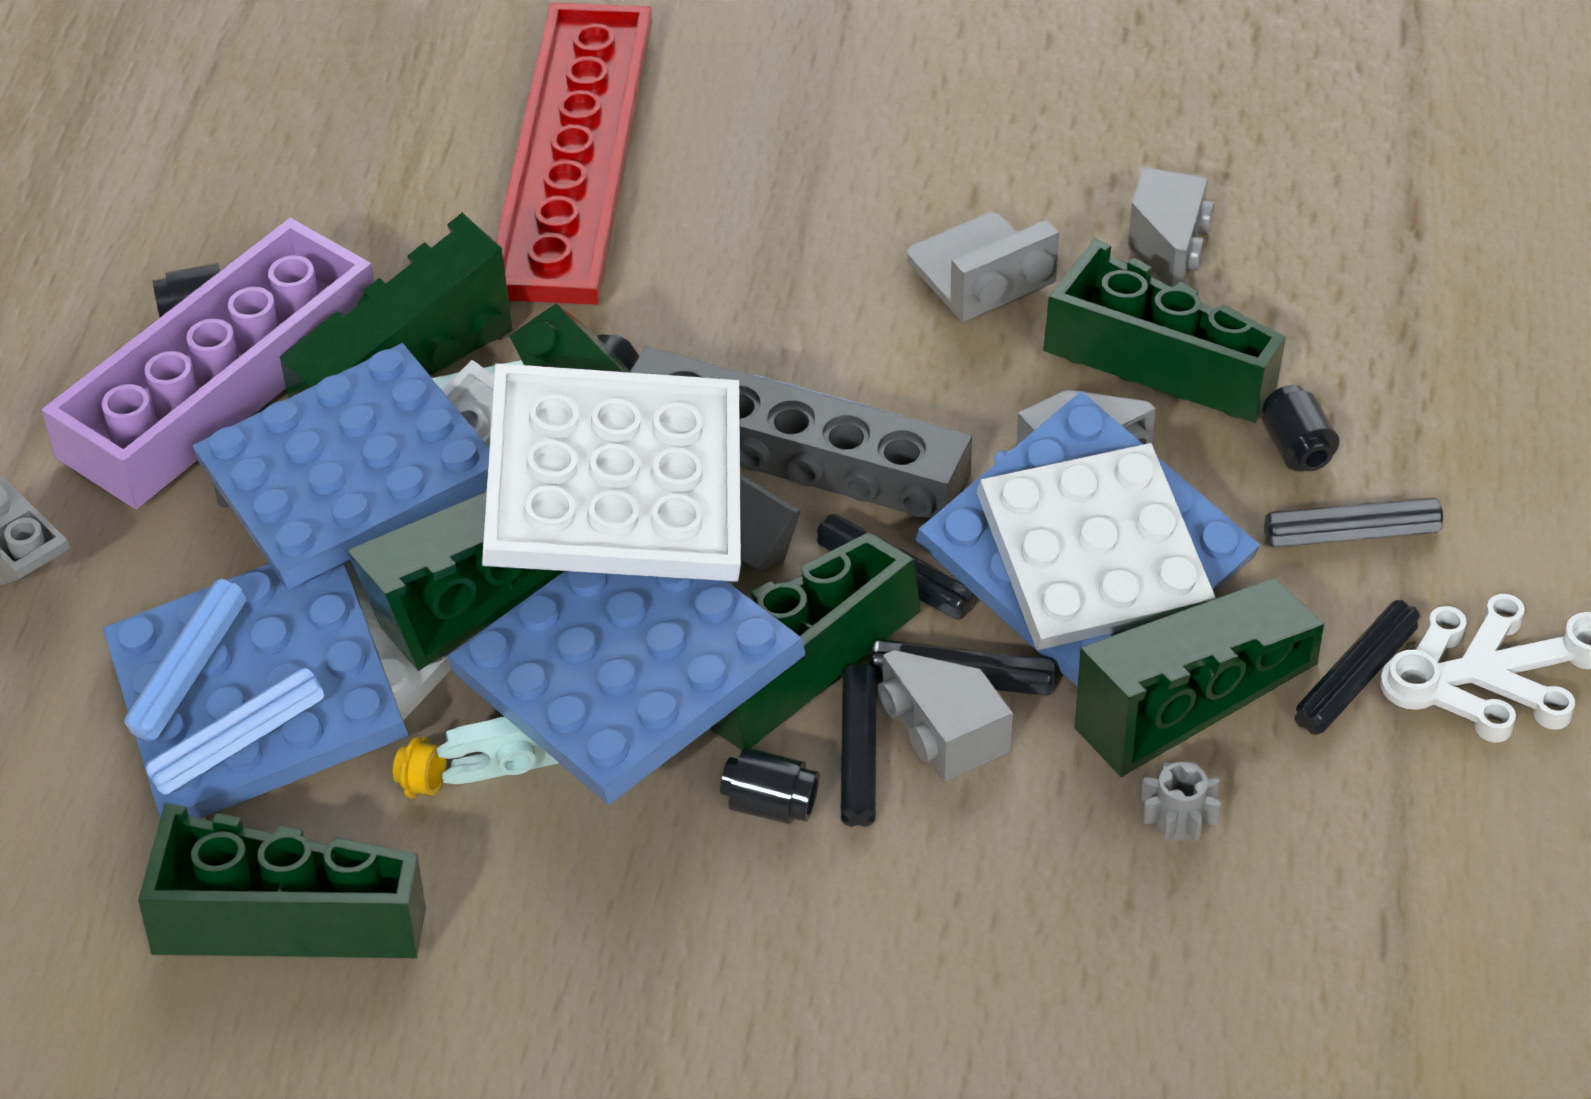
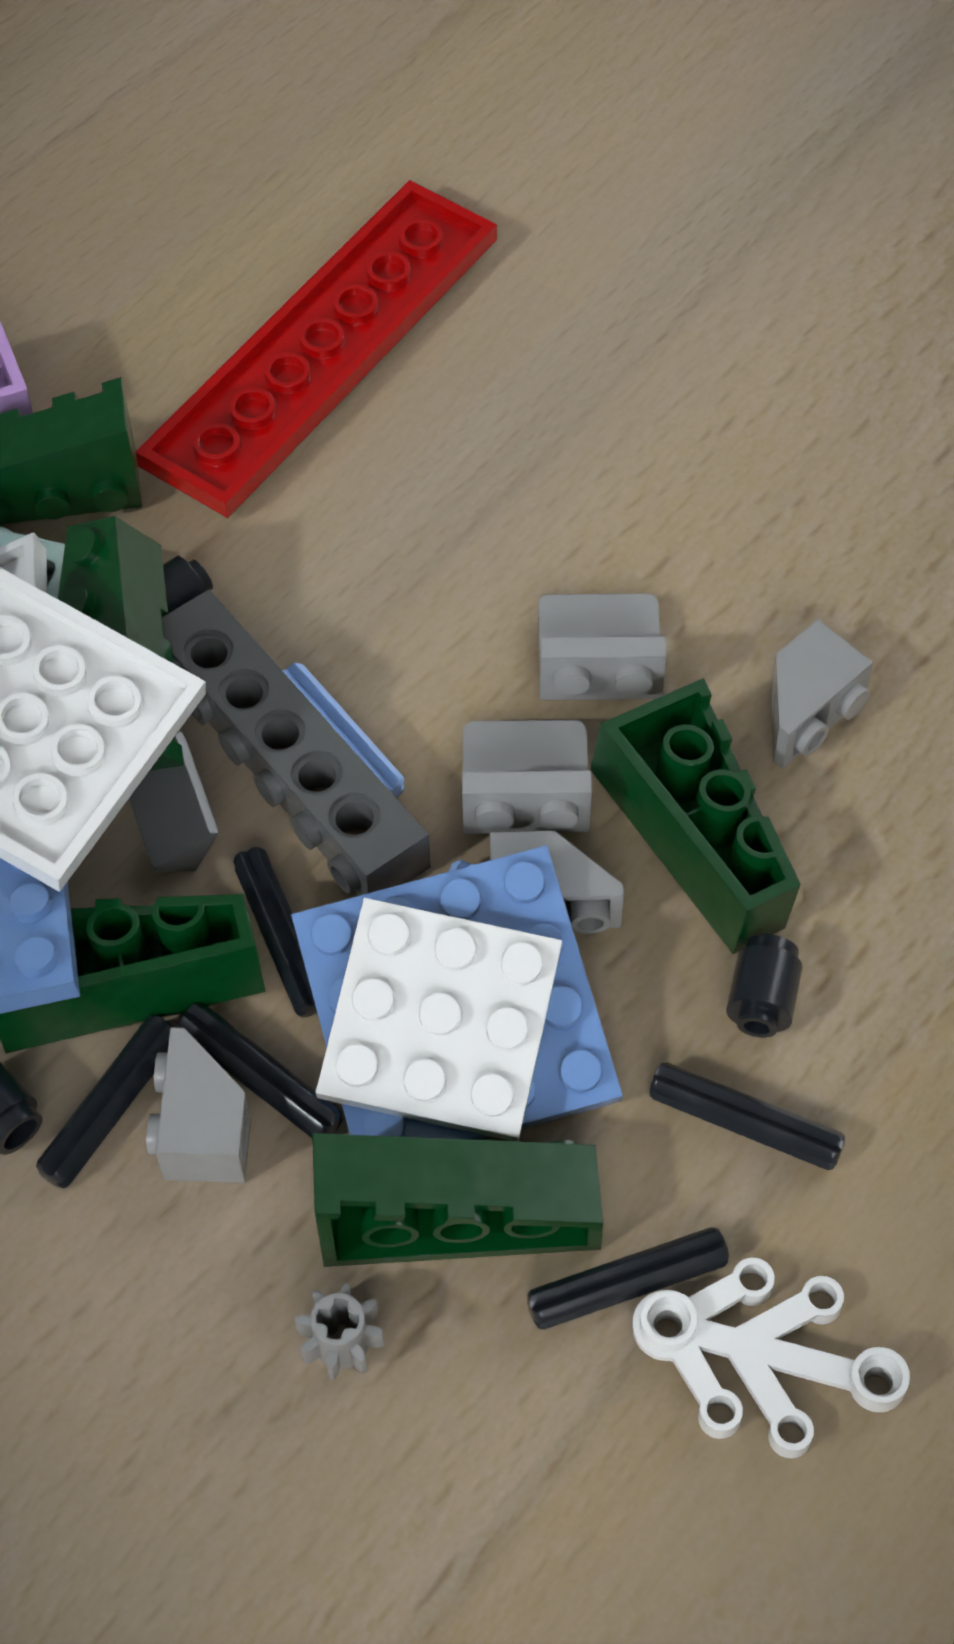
camera: 30 degrees right, 10 degrees up
(1002, 373) = (526, 776): none -> light grey bracket

